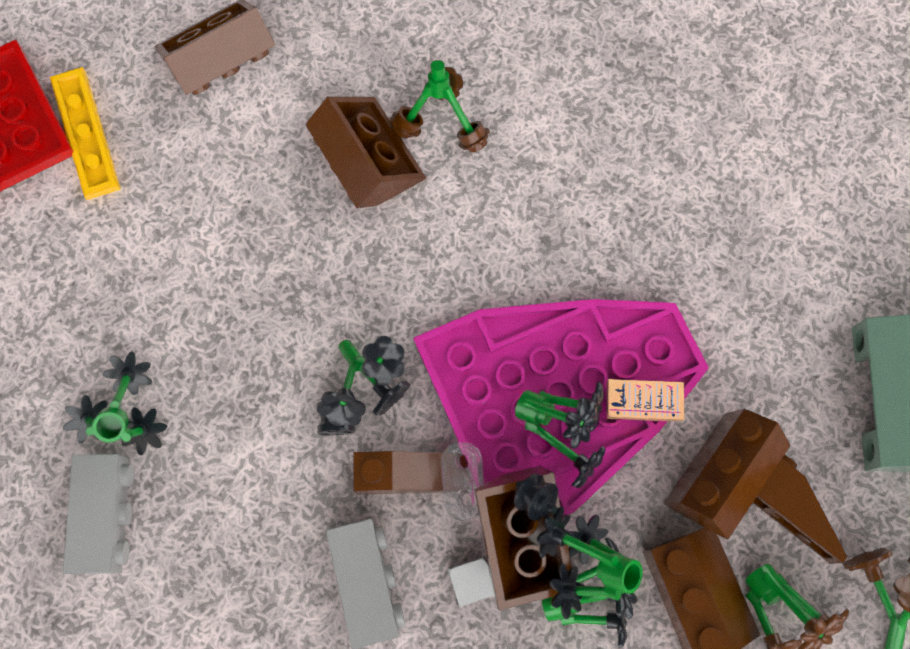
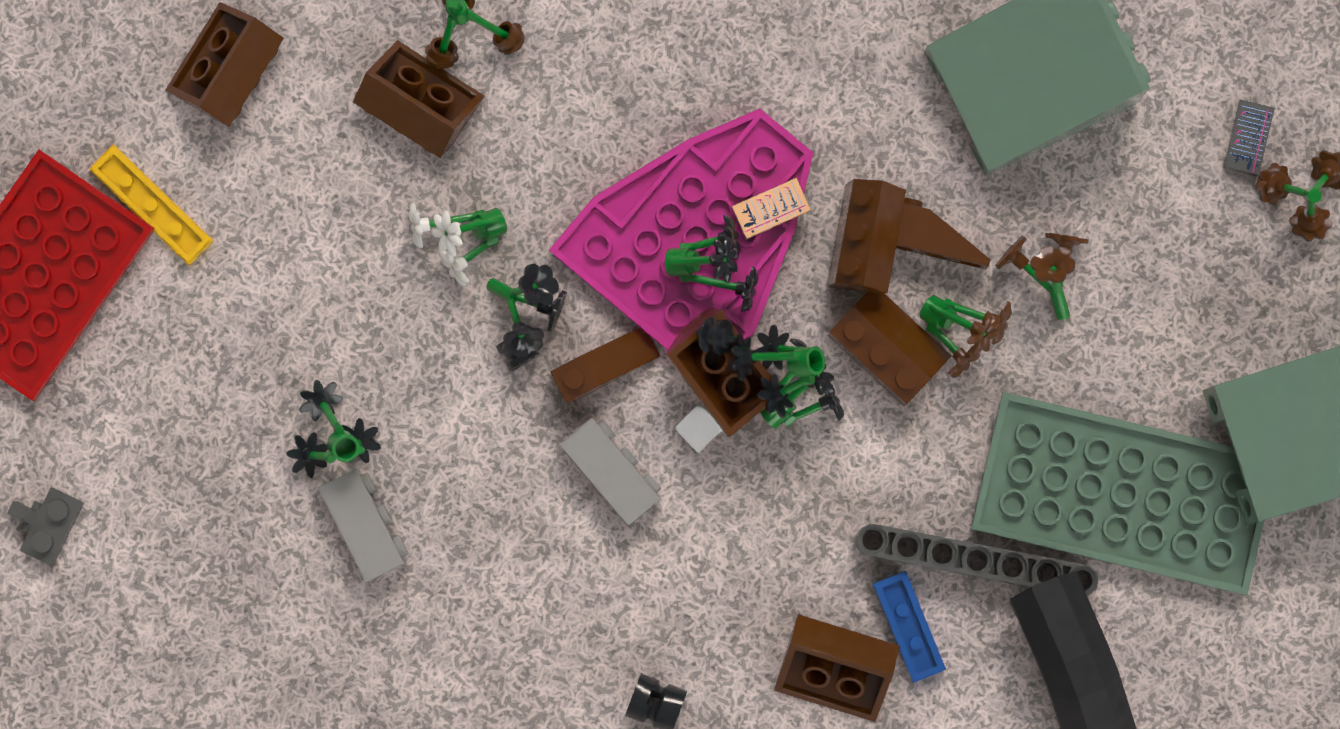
camera: 25 degrees left, 10 degrees up
(365, 287) = (484, 225): none -> plant
(460, 480) = (649, 351): clear plate -> none

